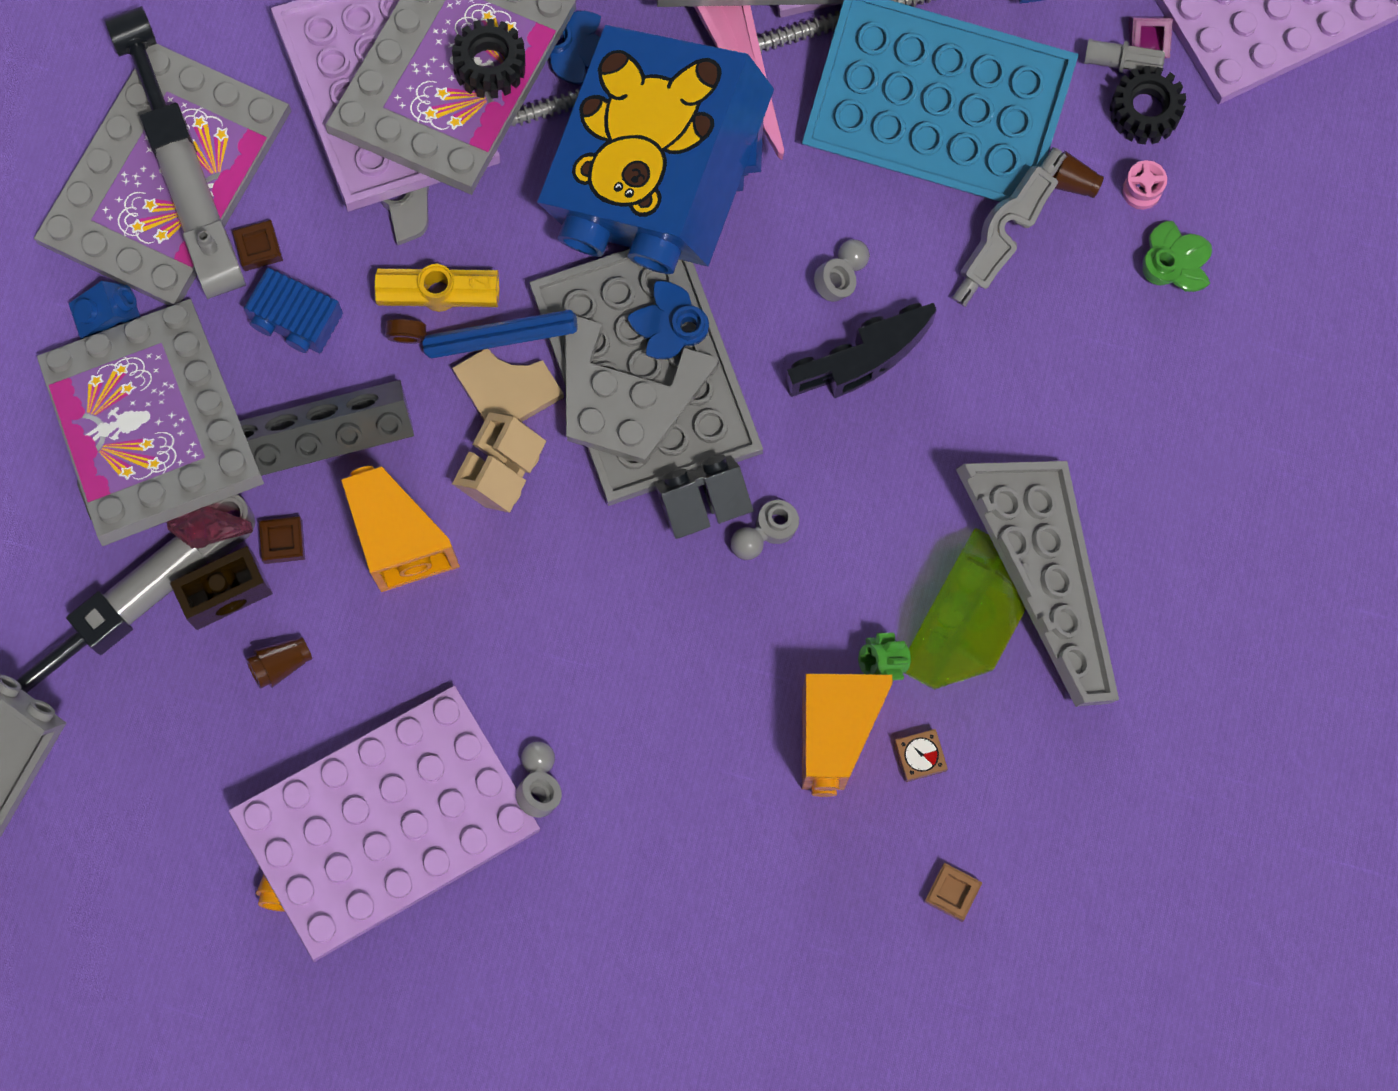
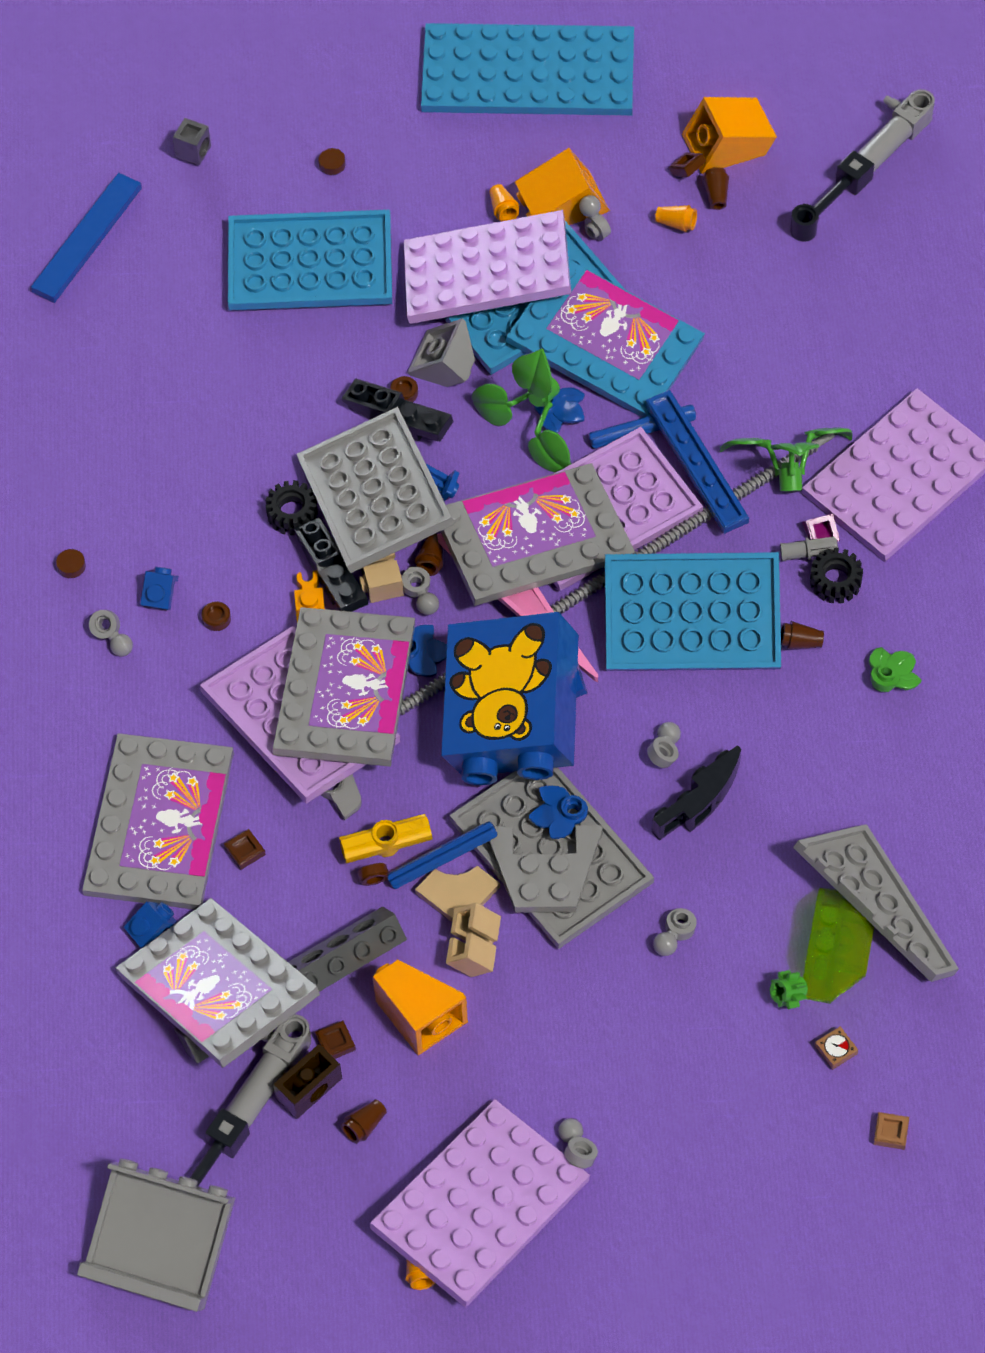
camera: 15 degrees left, 15 degrees down
(178, 161) = (162, 797): light grey piece -> none
(207, 527) = (287, 1038): clear pink piece -> none
(293, 312) = (288, 884): blue brick -> none
(484, 39) = (372, 658): black tyre -> none
(723, 490) = (616, 923): black piece -> none
(836, 725) = (770, 1040): light orange slope -> none
(1021, 208) = (765, 696): light grey piece -> none
(1150, 177) = (856, 621): bright pink wheel -> none

